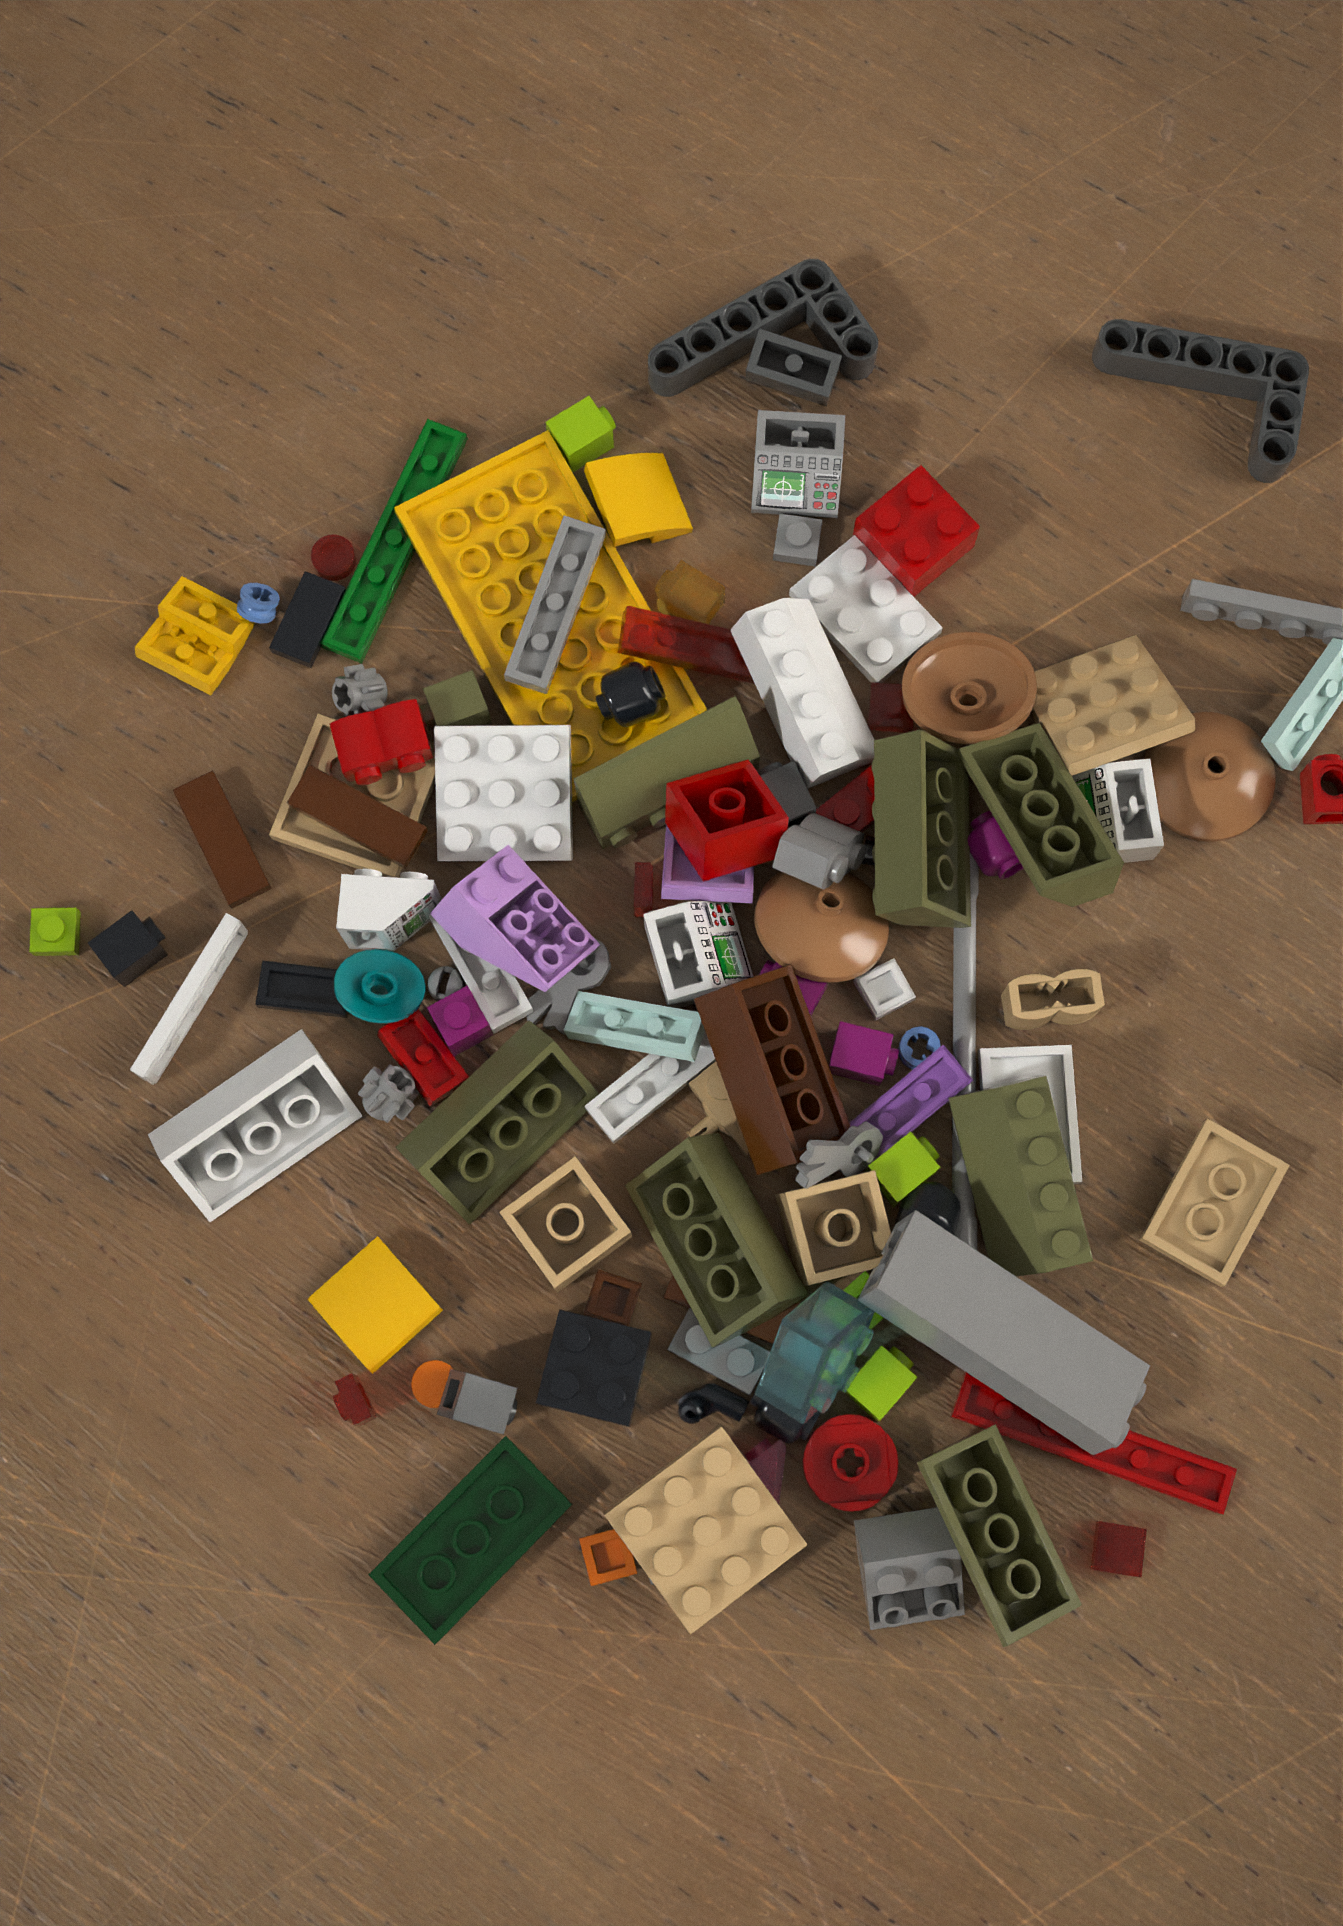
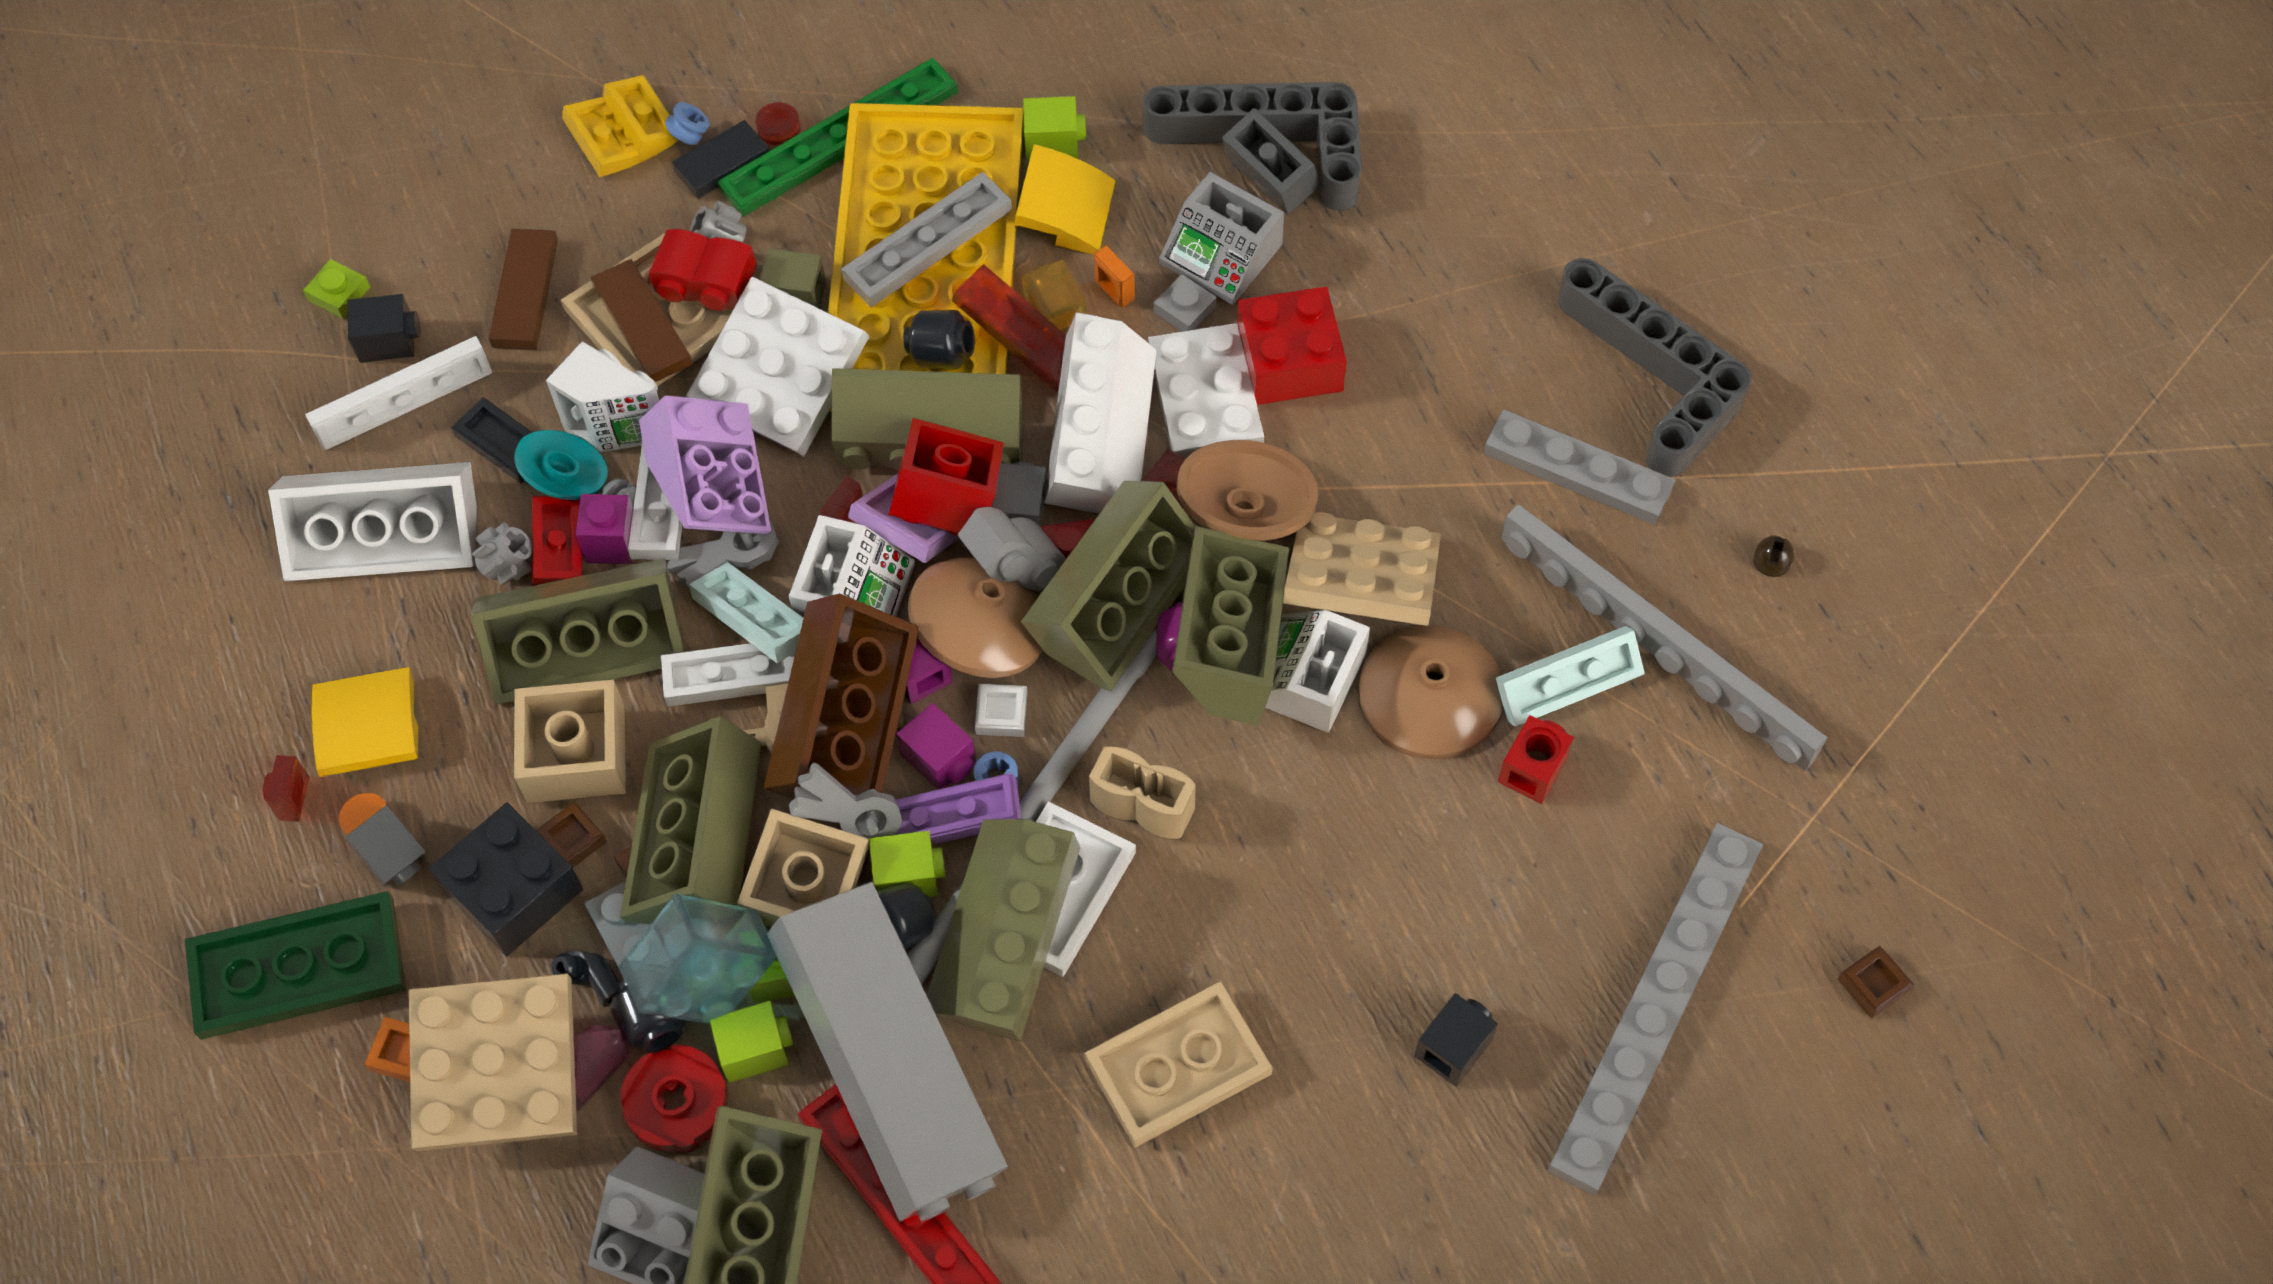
camera: 30 degrees right, 15 degrees down
(726, 548) = (1114, 277): none -> orange tile
(1205, 512) = (1579, 467): none -> light grey plate

